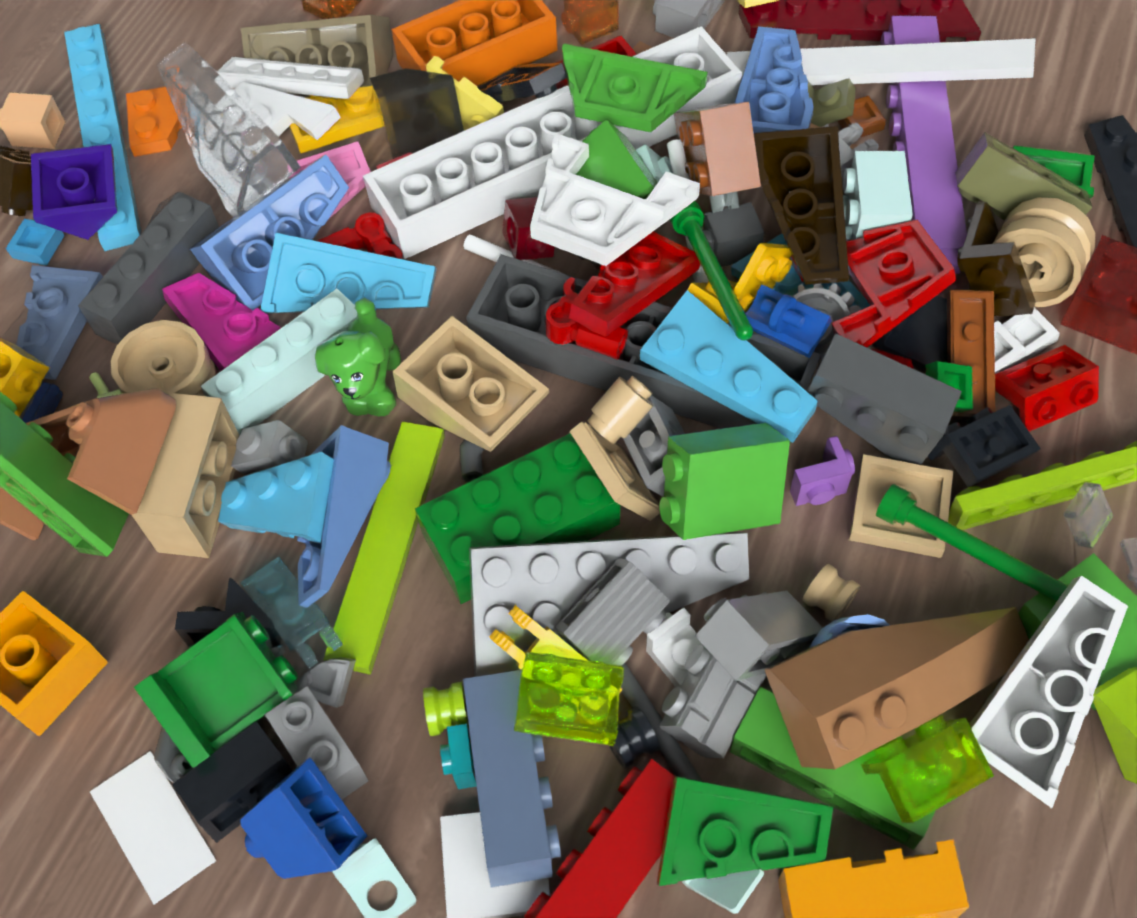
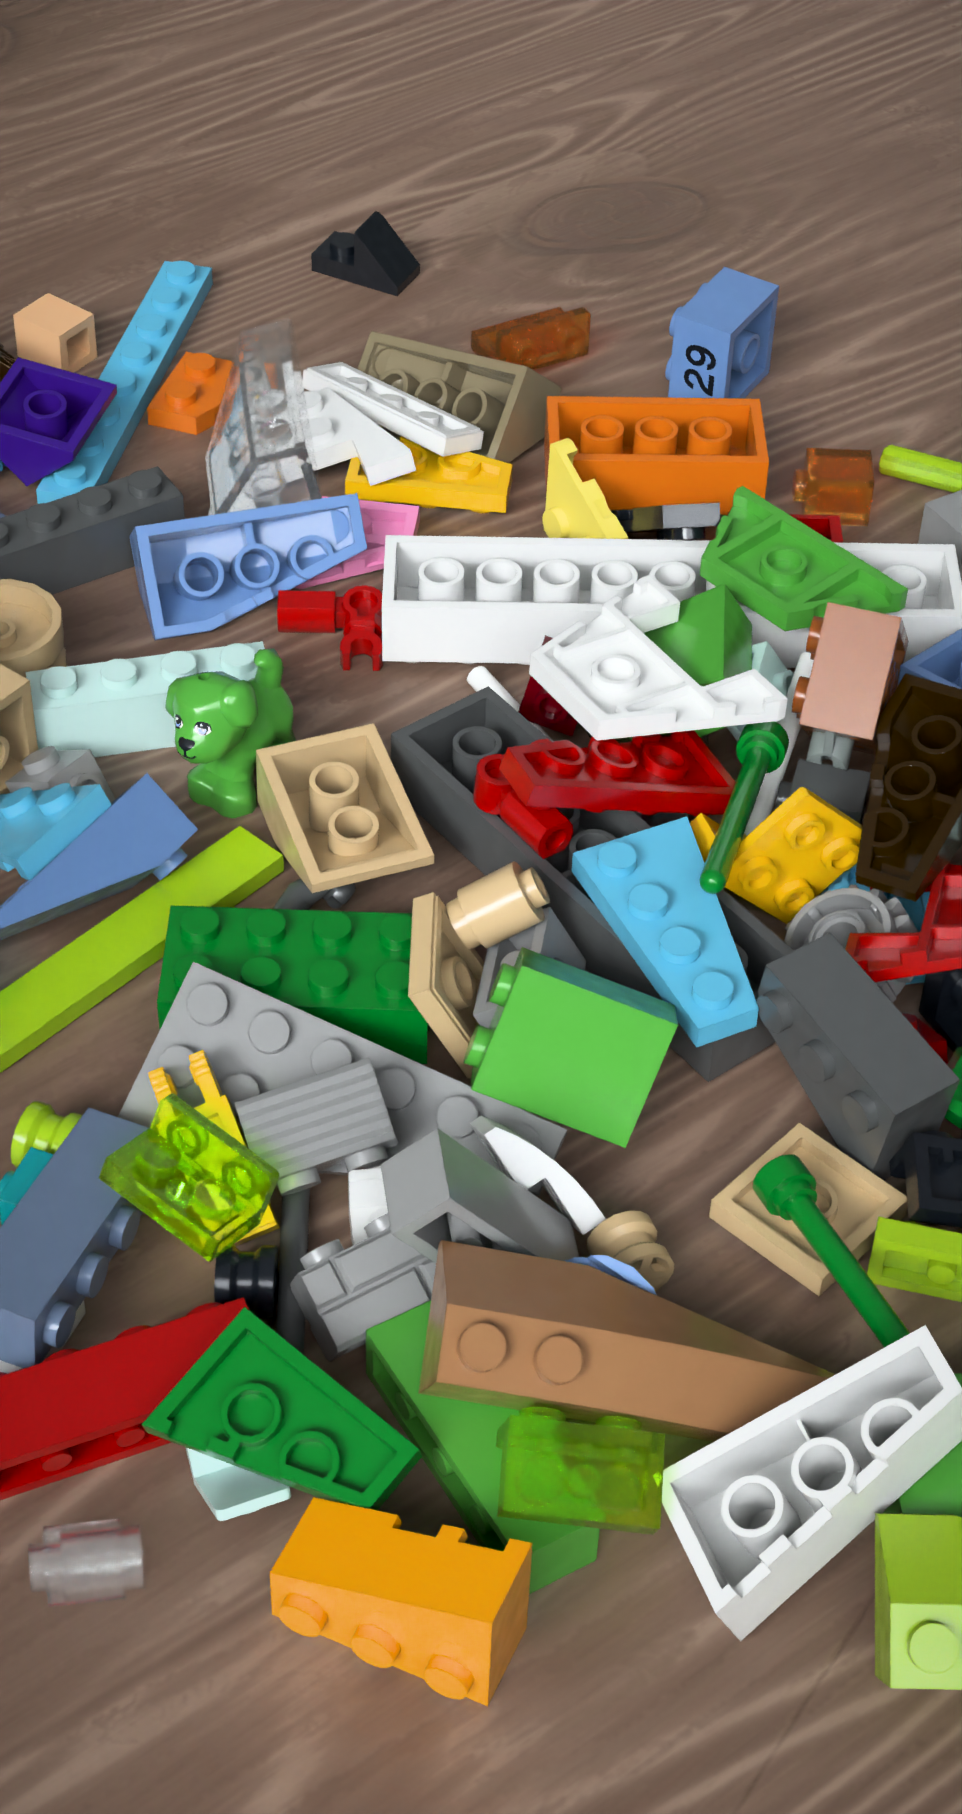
camera: 25 degrees right, 15 degrees down
(218, 318) = (106, 616): dark pink wing -> none
(309, 270) = (317, 655): medium azure wing -> none
(416, 109) = (512, 490): clear smoke slope -> none
(753, 573) = (529, 1165): none -> white slope
(787, 321) = (790, 903): blue hips -> none
(824, 480) = (725, 1127): medium lavender bracket -> none

